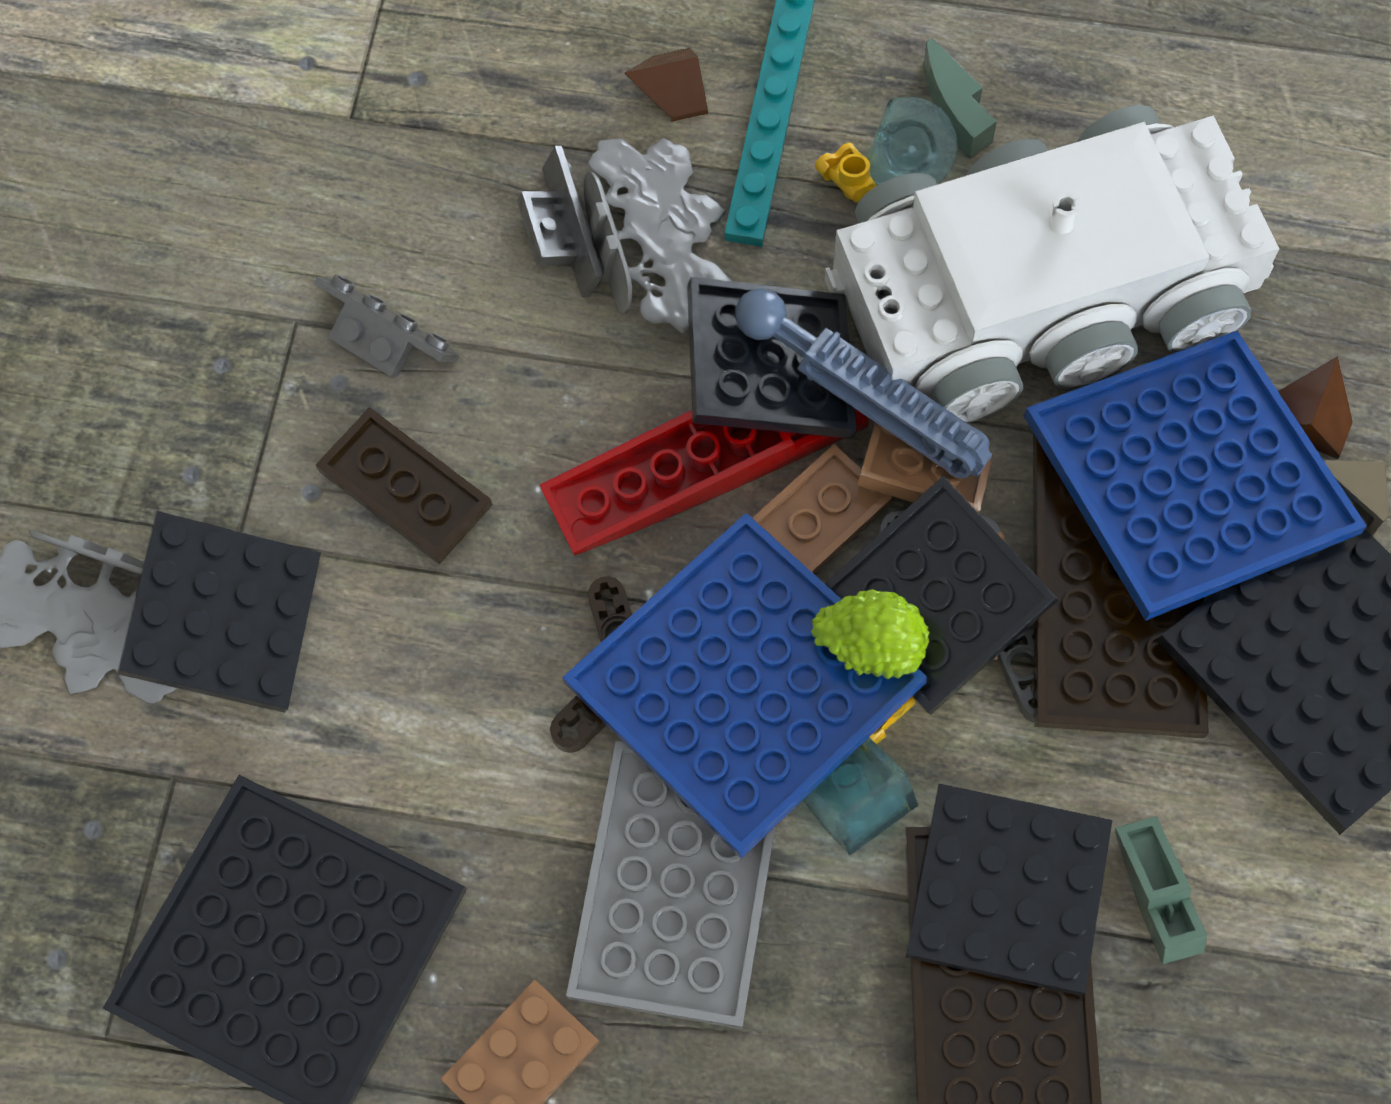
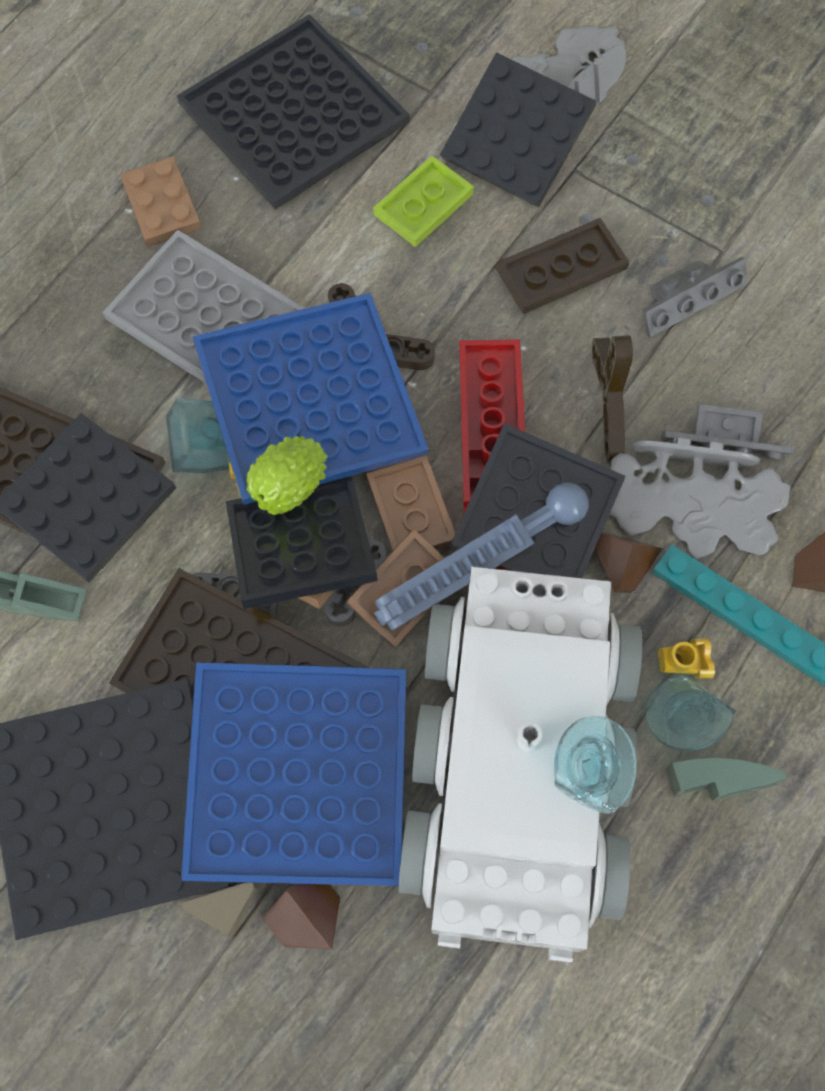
camera: 115 degrees right, 0 degrees up
(374, 695) = (423, 200): none -> lime plate
(567, 341) = (612, 364): none -> dark brown piece
(767, 265) = (625, 560): none -> reddish brown slope
(1056, 143) = (595, 764): none -> clear light blue hat

